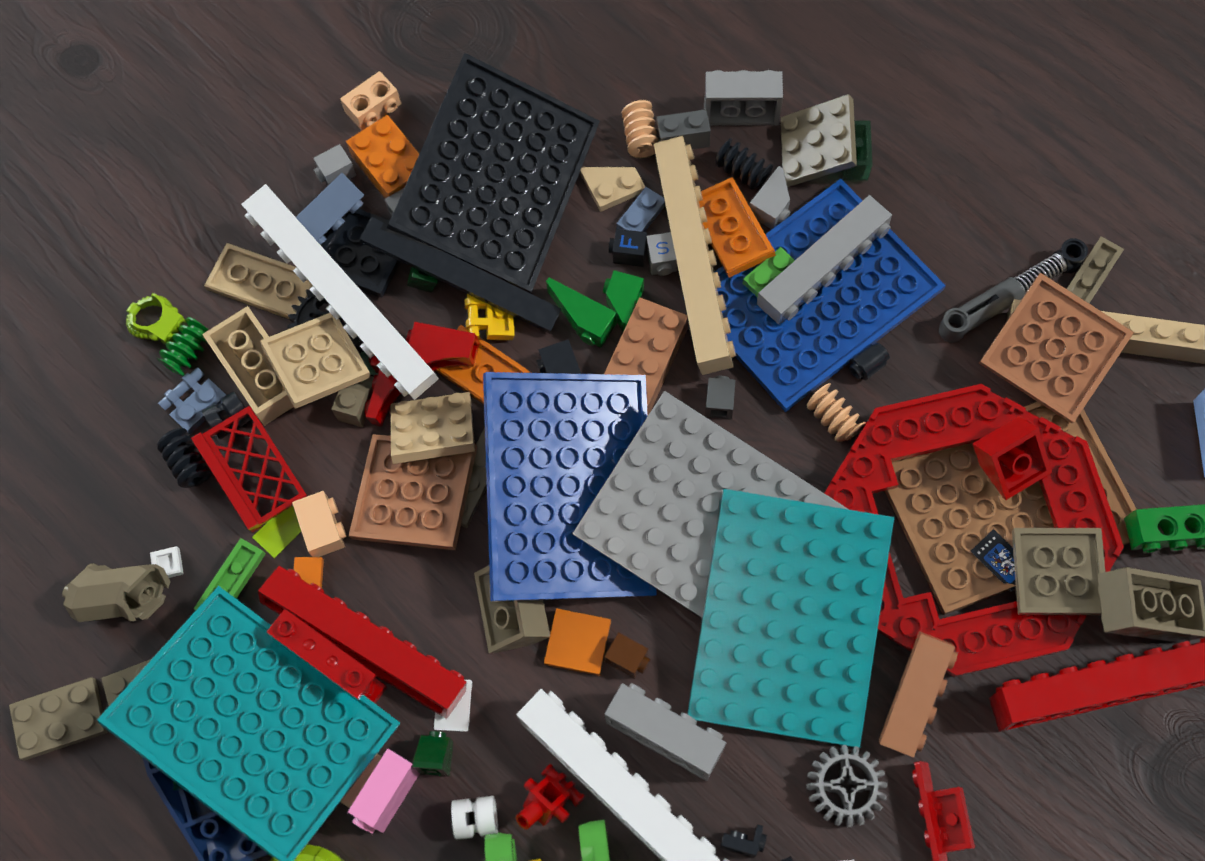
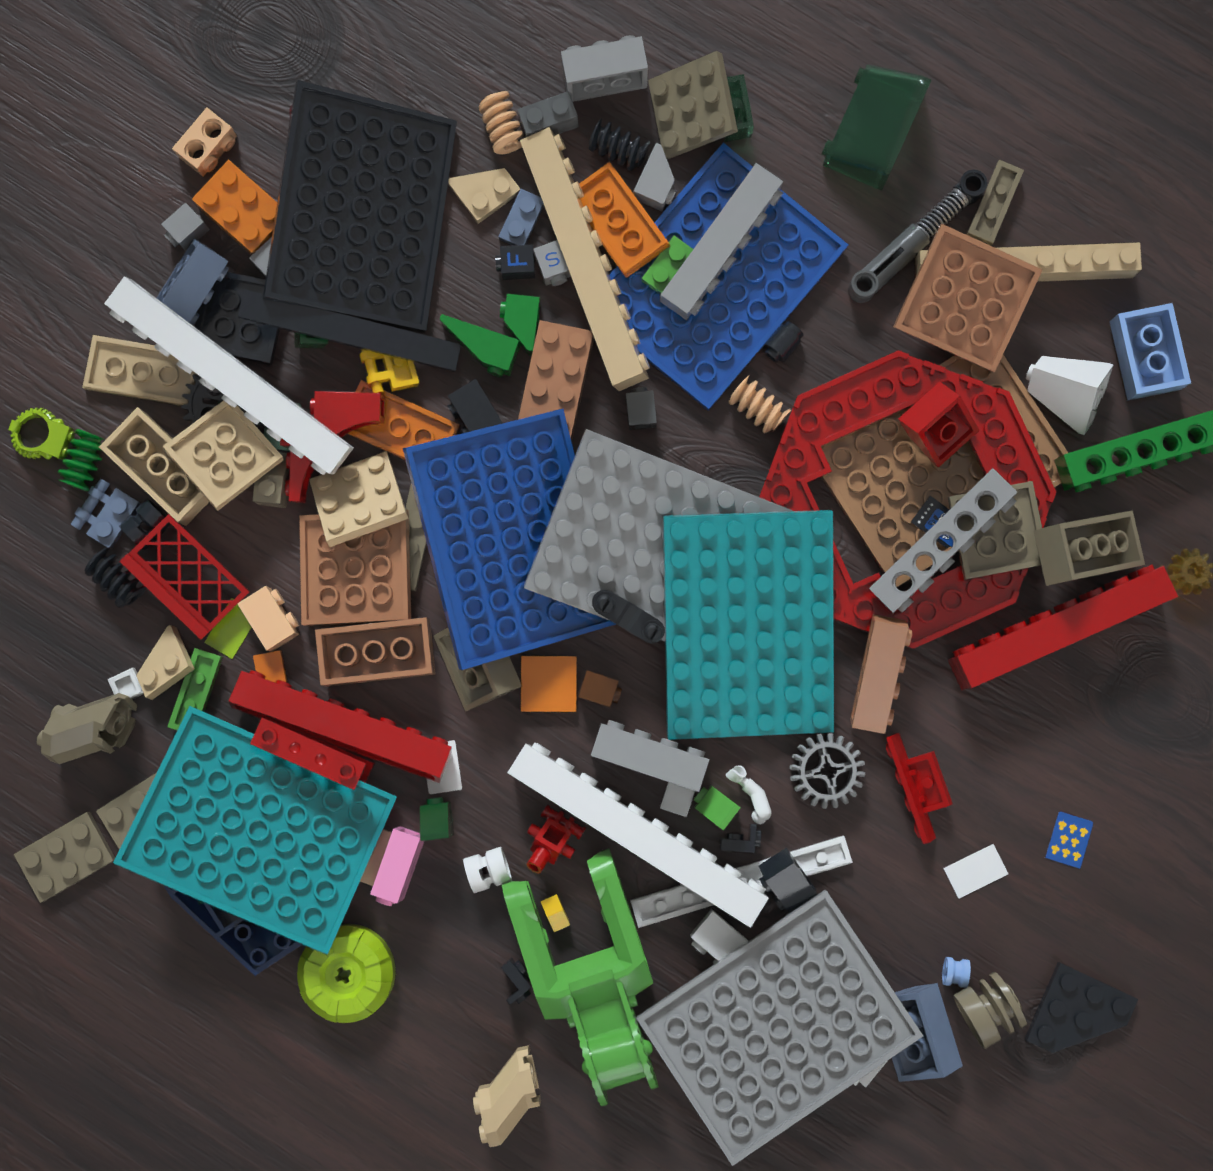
camera: 10 degrees left, 15 degrees up
(208, 549) = (165, 664): none -> tan wing
(413, 574) = (375, 652): none -> nougat brick
(670, 581) = (628, 616): none -> black piece
(685, 785) = (677, 799): none -> white tile
(724, 798) = (716, 806): none -> bright green slope
(769, 797) = (759, 799): none -> white arm
(986, 186) = (875, 124): none -> clear green windscreen
(1058, 520) = (990, 485): none -> light grey brick
(1147, 453) = (1070, 388): none -> white slope

